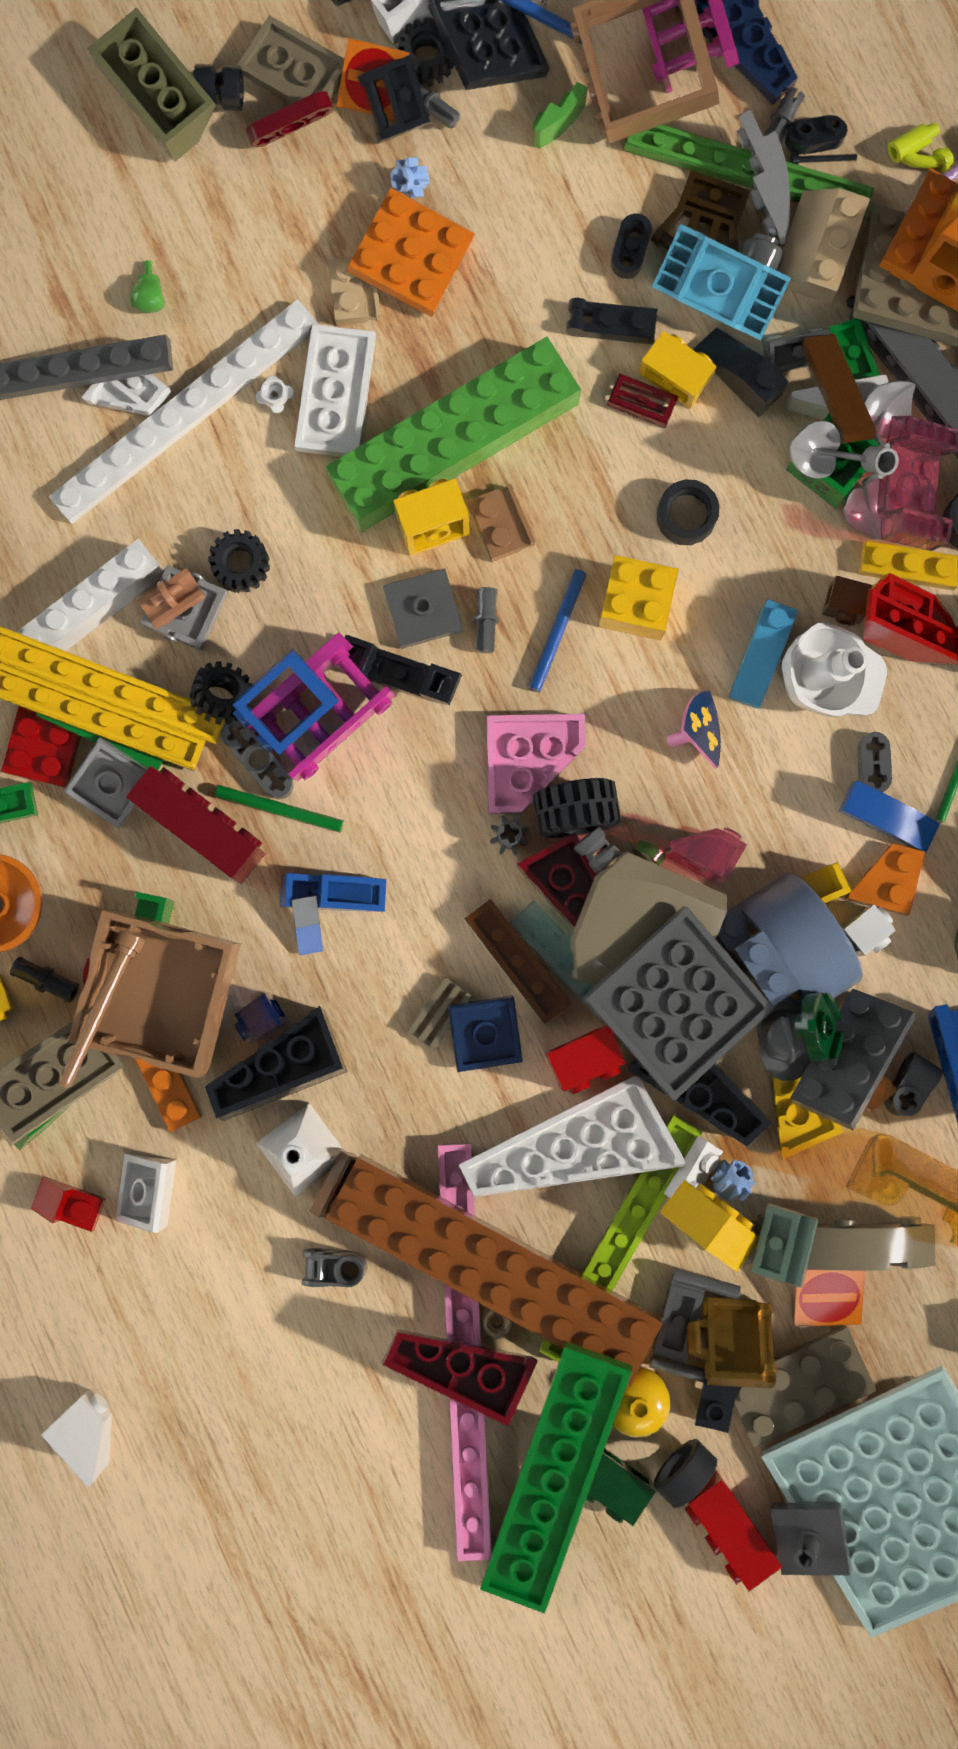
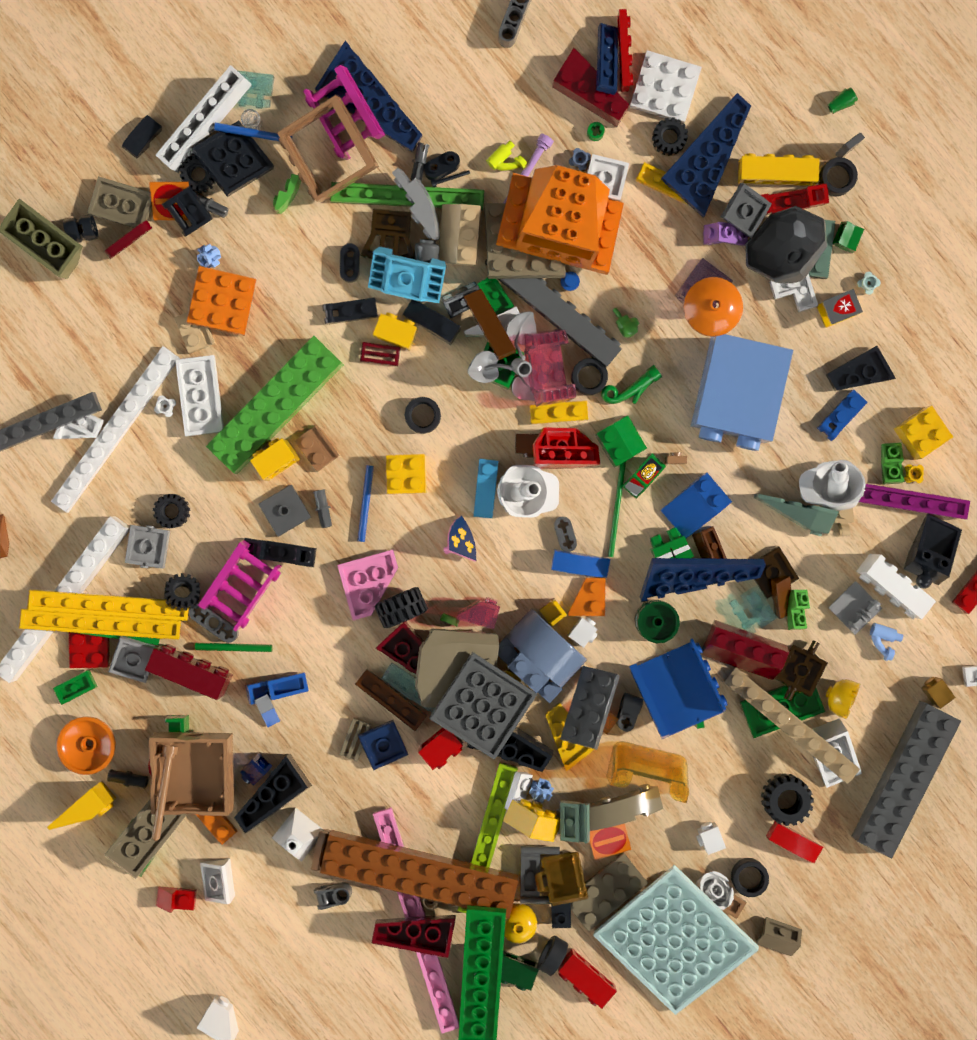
camera: 10 degrees left, 5 degrees up
(147, 292) = (73, 363): bright green piece -> none
(171, 598) = (138, 547): nougat hips -> none
(310, 679) = (230, 575): blue window -> none
(514, 827) = (367, 635): dark grey gear -> none
(591, 844) = (414, 629): dark grey wheel -> none
(594, 1140) = (460, 787): white wing -> none
(780, 1047) = (551, 707): dark grey piece -> none
(811, 1539) = (629, 972): dark grey tile -> none
(819, 1027) = (565, 697): dark green plate -> none

